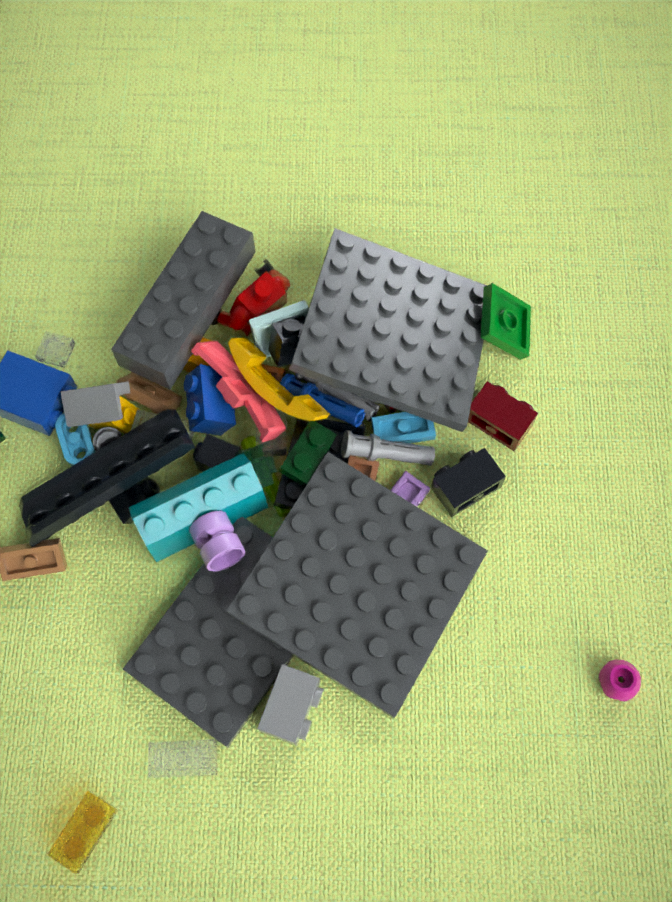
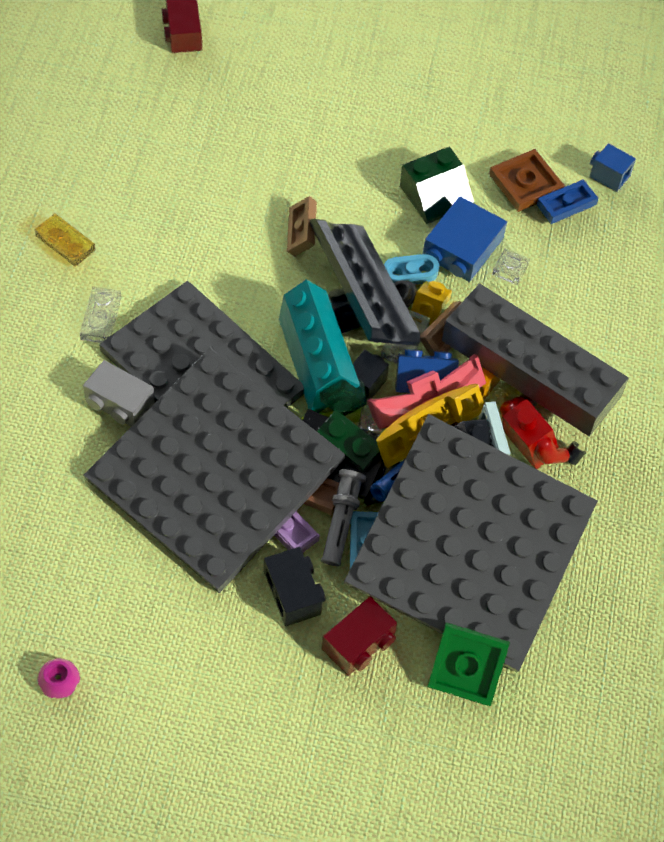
camera: 95 degrees right, 10 degrees down
(94, 404) = (442, 277): light grey panel -> none
(217, 541) = (277, 352): lavender wheel -> none

